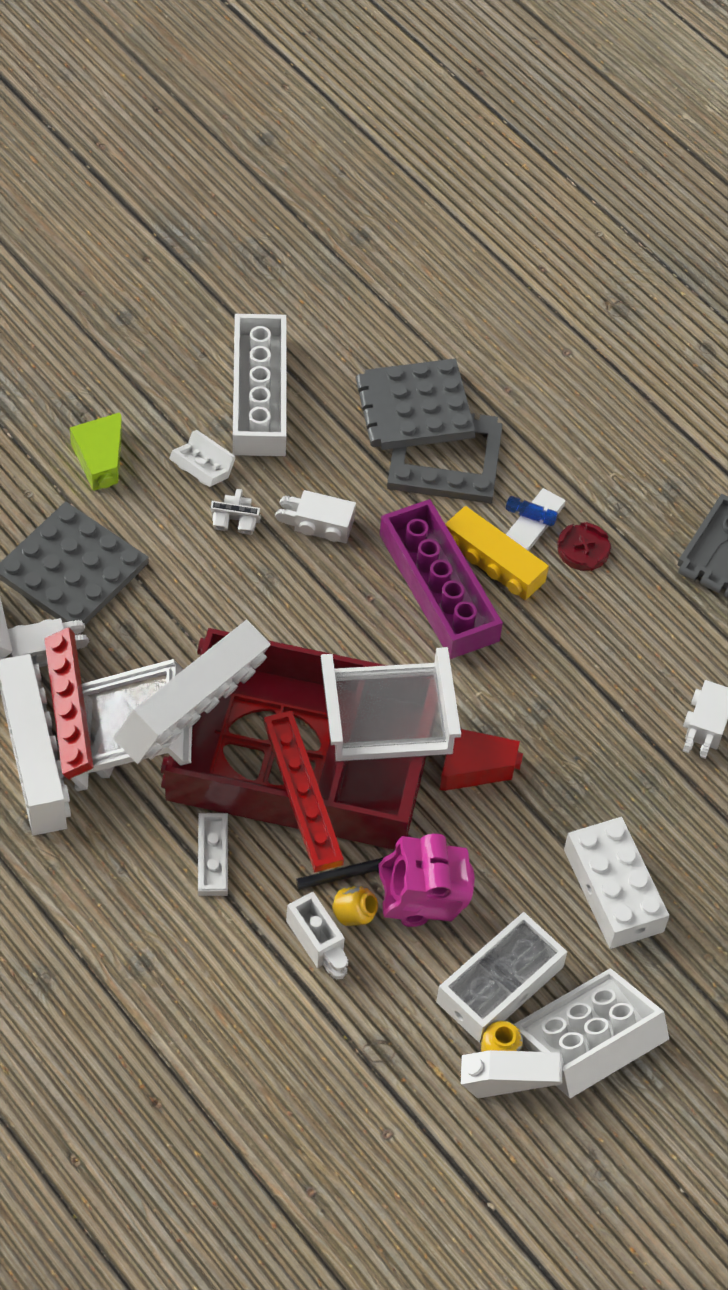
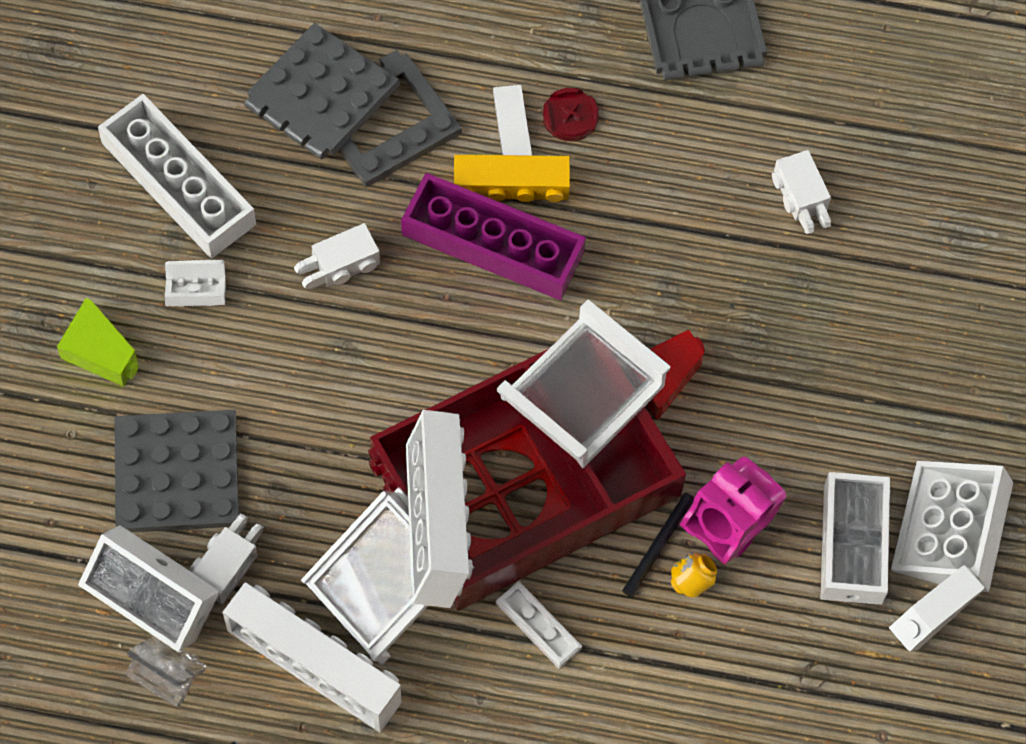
camera: 40 degrees left, 10 degrees up
(68, 703) = (316, 597): plate -> none
(235, 508) = (259, 320): white hips -> none
(303, 791) = (587, 516): red plate -> none
(318, 934) = (691, 623): white hinge -> none
(502, 1037) = (904, 591): yellow head -> none
(531, 511) = (506, 116): clear blue axle -> none
(616, 882) = (862, 387): white brick -> none

